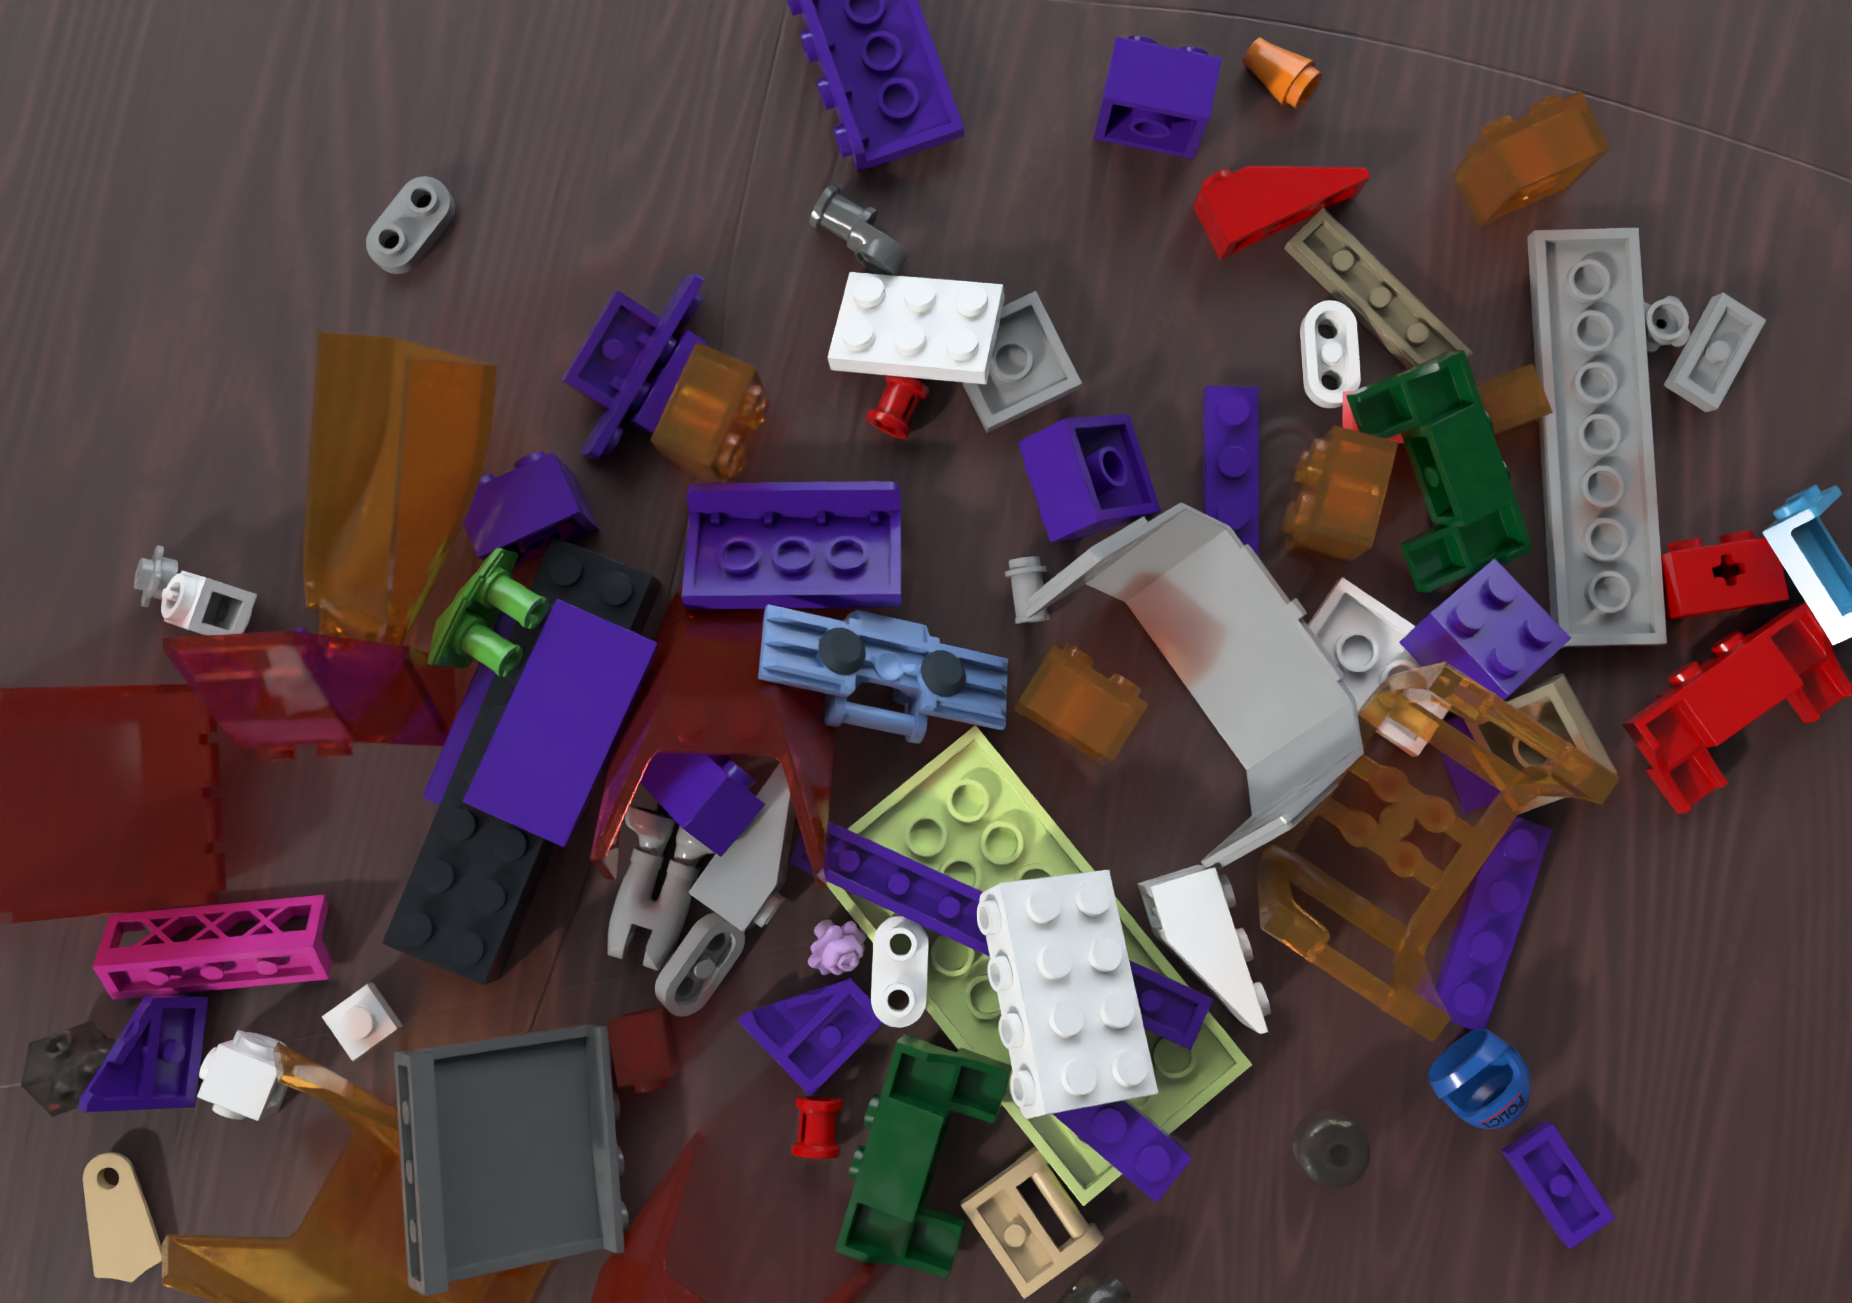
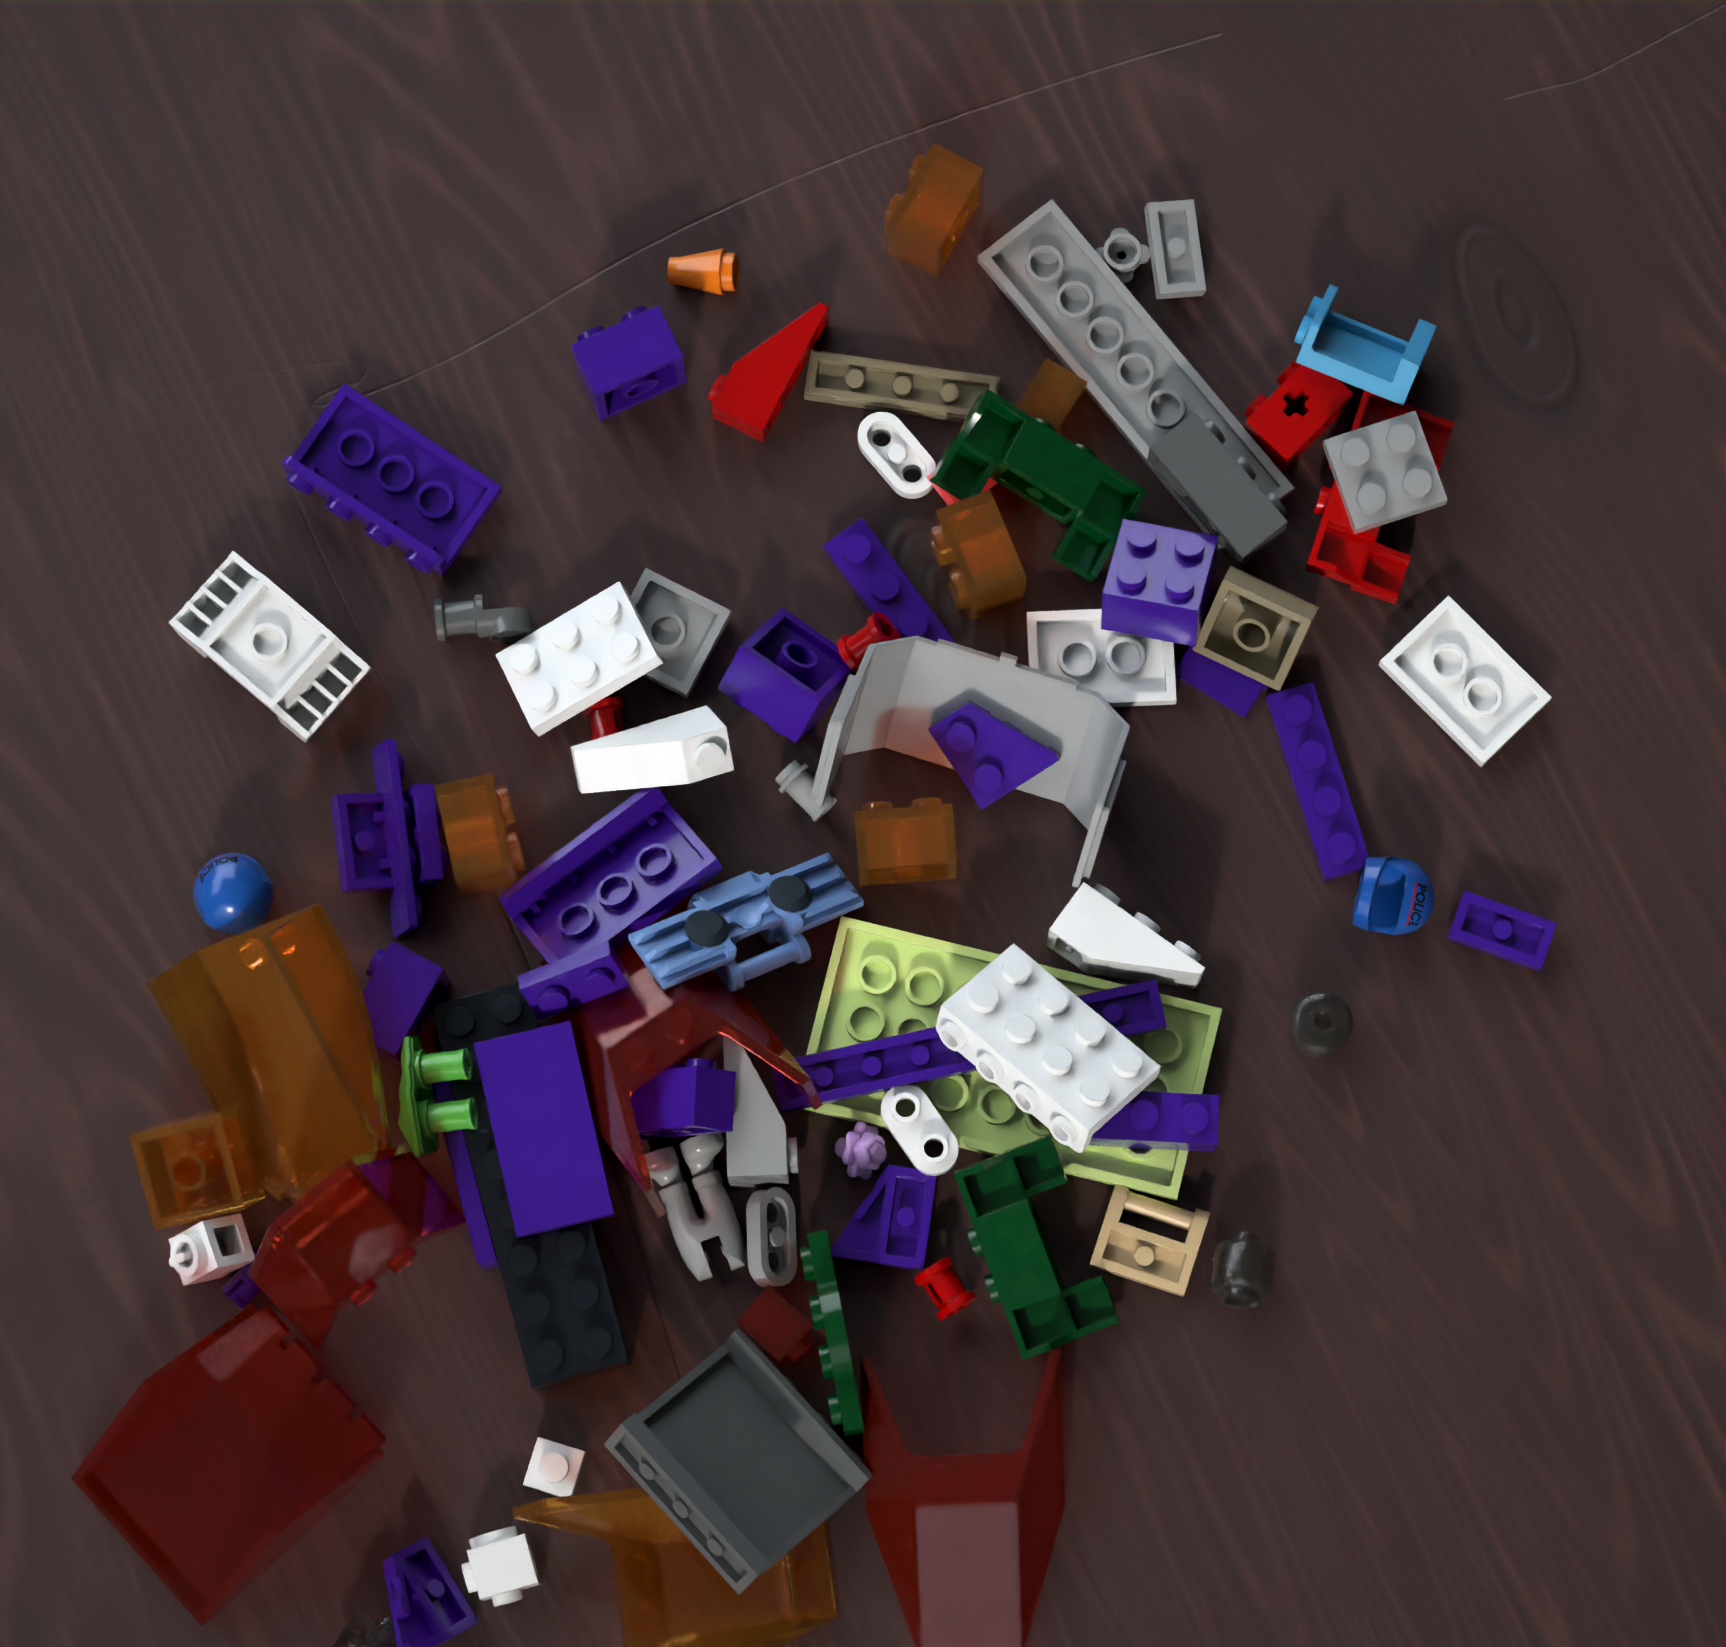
camera: 35 degrees left, 5 degrees down
(154, 575) = (149, 1261): light grey plate -> none
(210, 957) = (409, 1500): dark pink fence -> none
(246, 526) = (197, 1166): none -> clear orange brick
(415, 226) = (136, 860): light grey plate -> none
(467, 311) = (233, 893): none -> blue helmet
(659, 122) = (270, 645): none -> white plate
(671, 1119) = (828, 1315): none -> dark green plate
(690, 608) = (573, 980): none -> dark purple plate
(919, 460) = (655, 754): none -> white slope
(1165, 495) = (877, 630): none -> red bush
(1215, 679) = (989, 753): none -> dark purple wing
(1411, 992) = (1282, 863): clear orange windscreen -> none
(1602, 594) = (1218, 488): none -> dark grey brick
(1691, 932) = (1464, 681): none -> white plate
(1770, 693) = (1384, 472): none -> light grey plate

